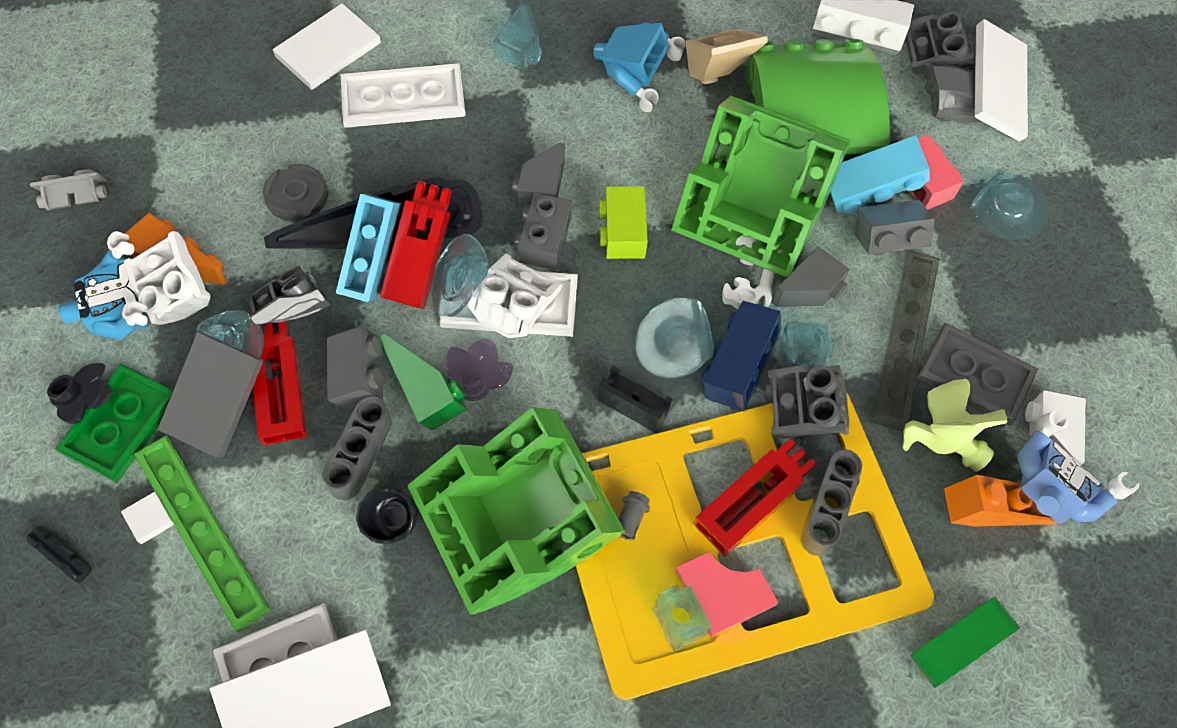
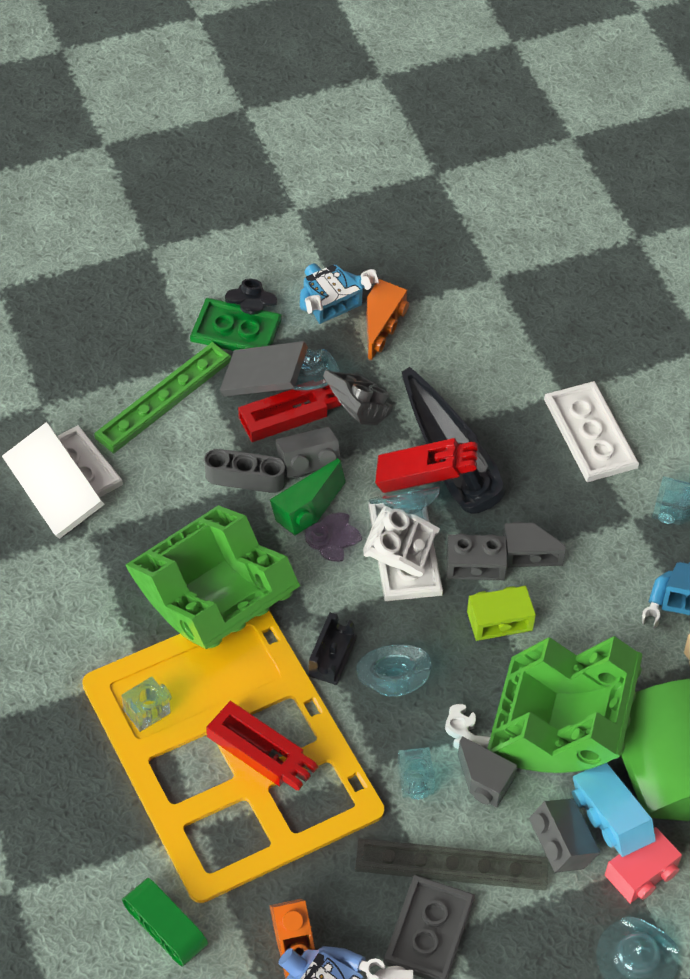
camera: 80 degrees right, 10 degrees down
(56, 190) = (416, 234): light grey hinge -> none
(59, 554) = (130, 323): black axle -> none
(147, 518) = (165, 363): white tile -> none
(167, 281) = (348, 317): white slope -> none
(304, 195) = (460, 387): dark grey tile -> none
(326, 46) = (623, 366): white tile -> none
(368, 247) = (411, 428): medium azure brick -> none
(386, 515) = (192, 498): black hair -> none
(632, 513) = (225, 659): dark grey pin -> none
(726, 594) = (172, 736): coral tile -> none
(742, 355) = (390, 722): dark blue brick -> none
(808, 401) = (357, 779): dark grey slope -> none
(839, 488) = (256, 791): dark grey beam -> none
(953, 426) = (359, 898): yellowish green animal -> none

